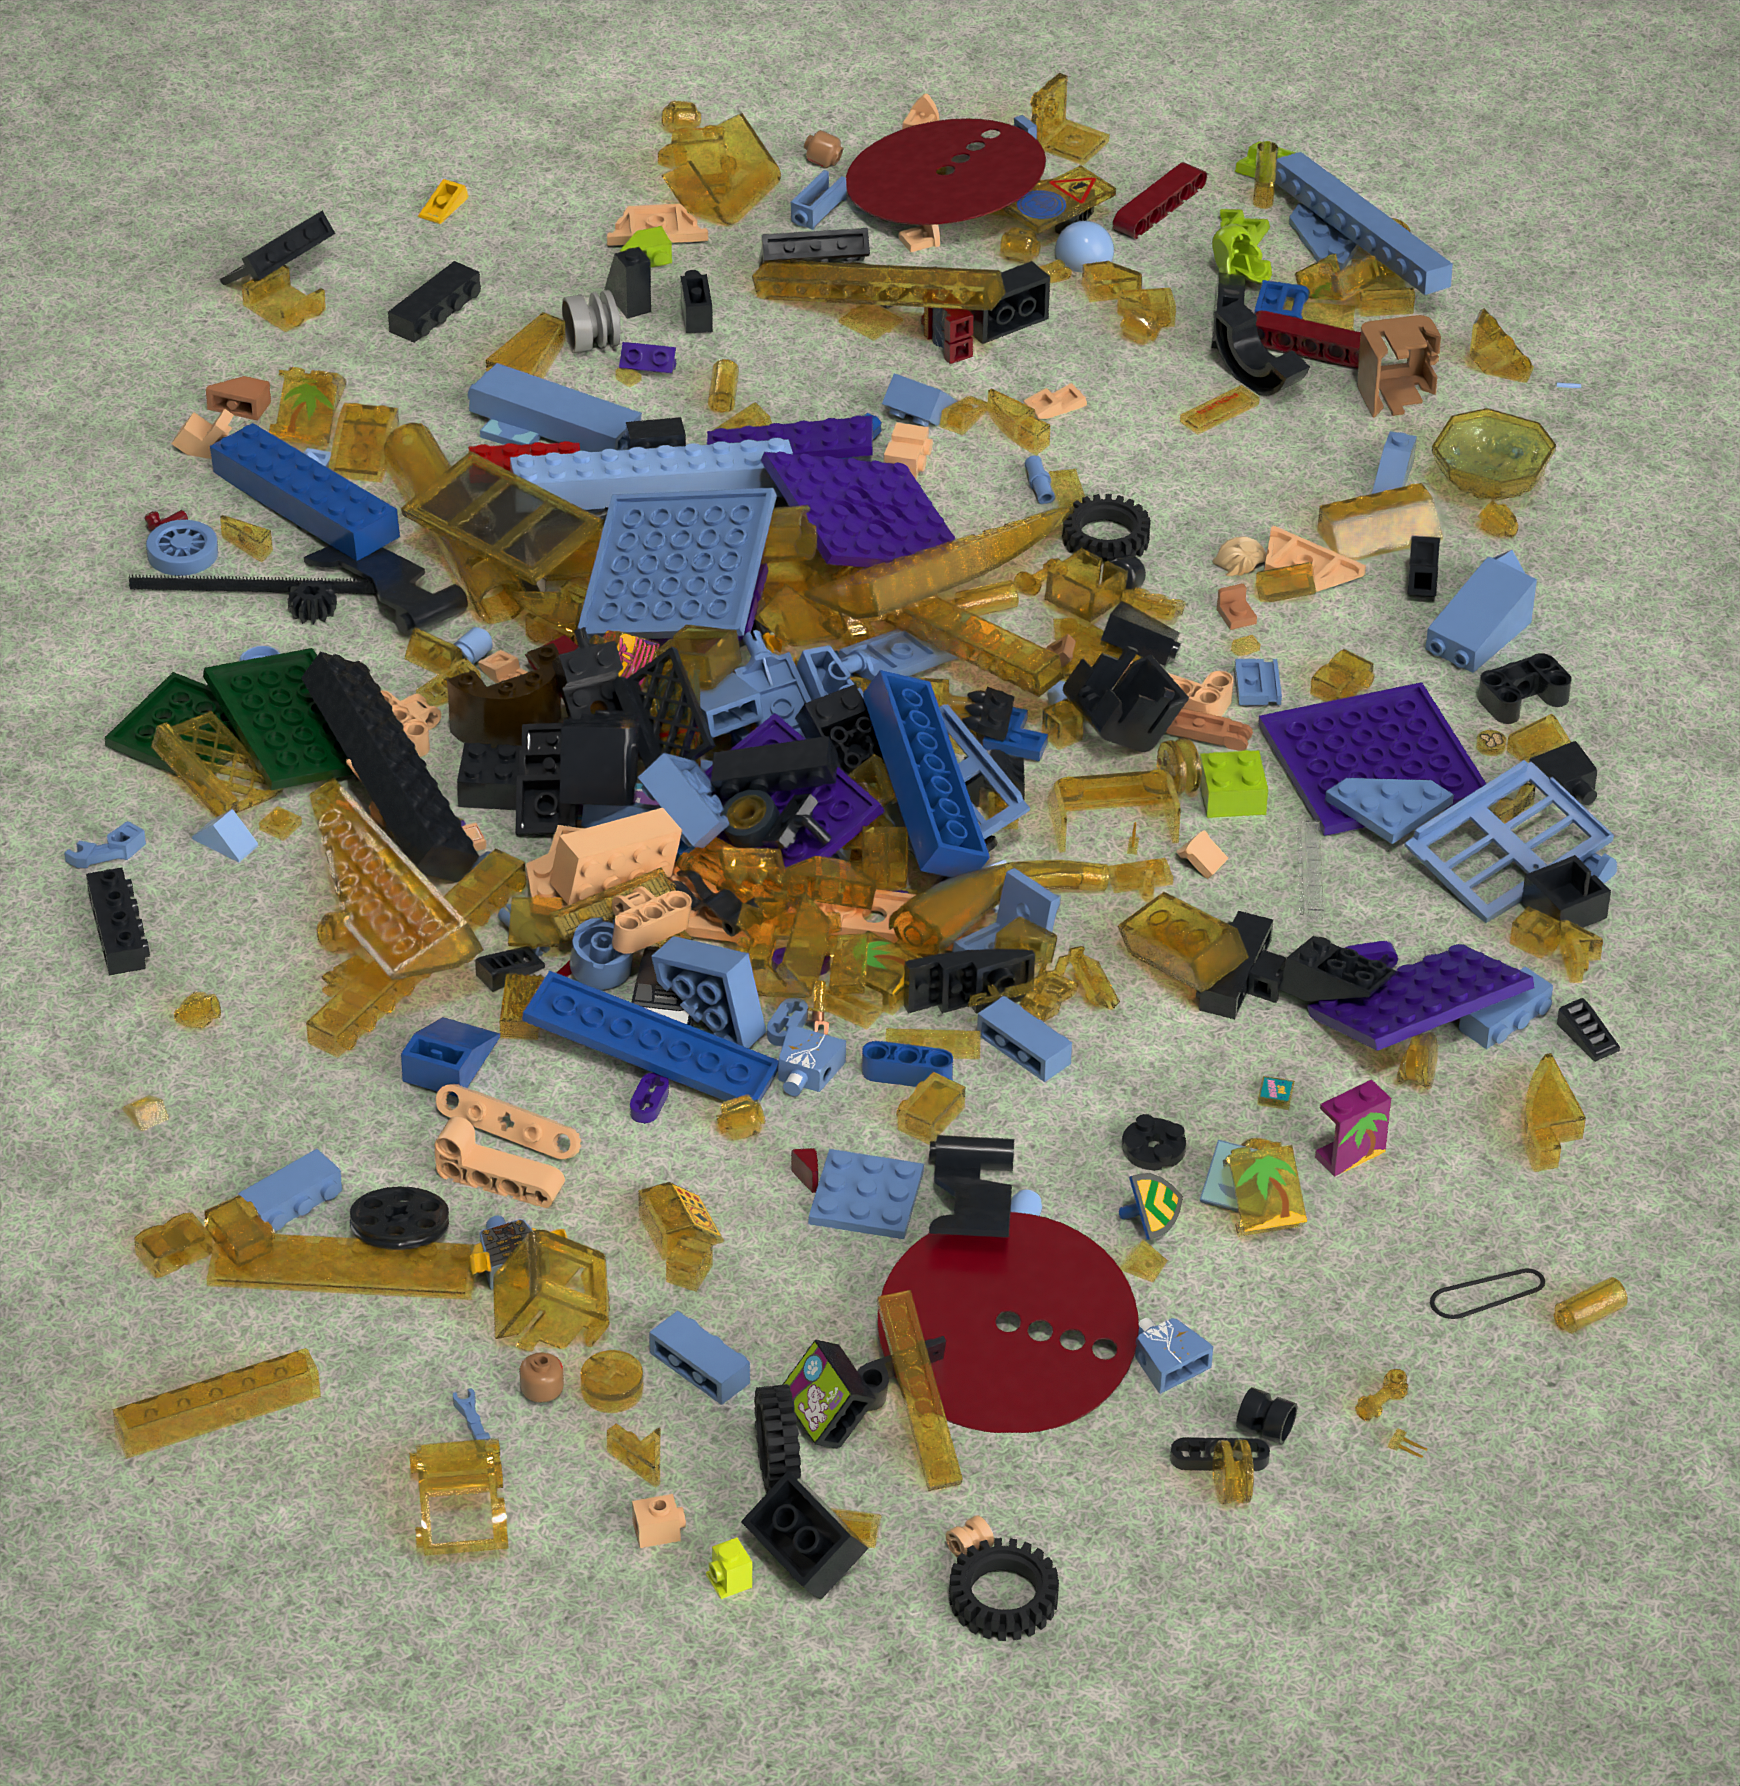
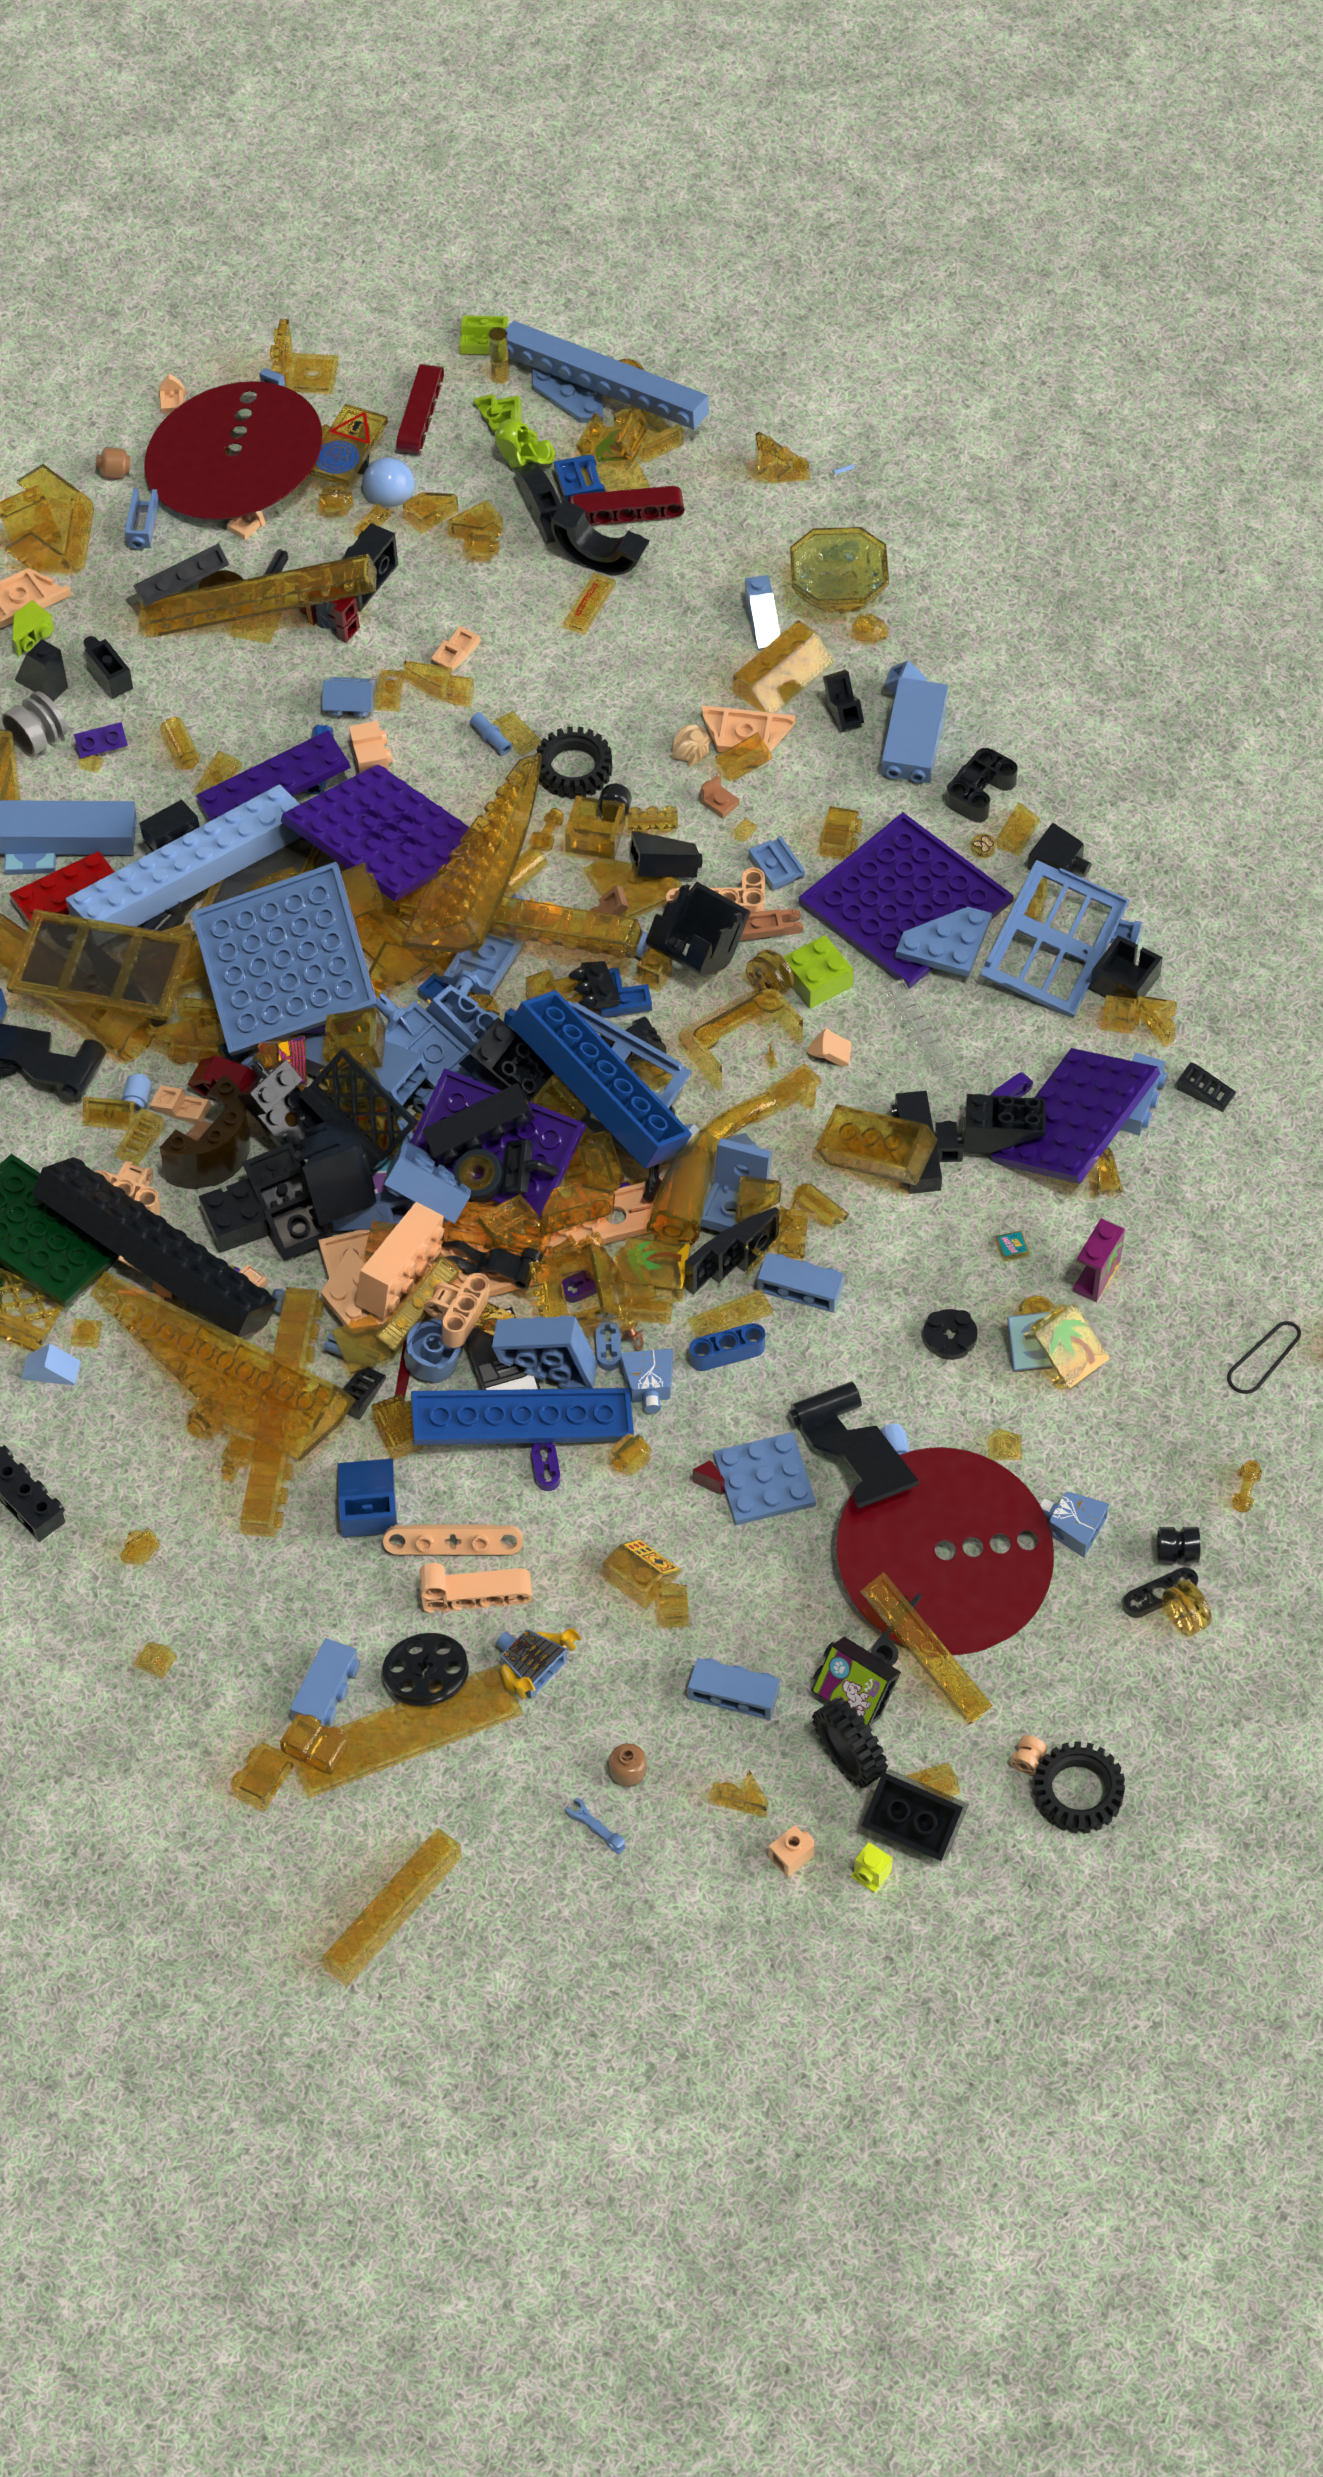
camera: 25 degrees left, 15 degrees up
(460, 1470) = (611, 1865): clear yellow window -> none
(536, 1281) = (575, 1701): clear yellow piece -> none
(612, 1381) = (680, 1741): clear yellow head -> none
(931, 1108) = (769, 1379): clear yellow brick -> none
(1156, 1204) = (988, 1392): shield -> none
(1398, 1438) = (1276, 1518): piece -> none
(1410, 339) = (706, 521): medium nougat piece -> none
(1550, 1115) = (1223, 1179): clear yellow slope -> none

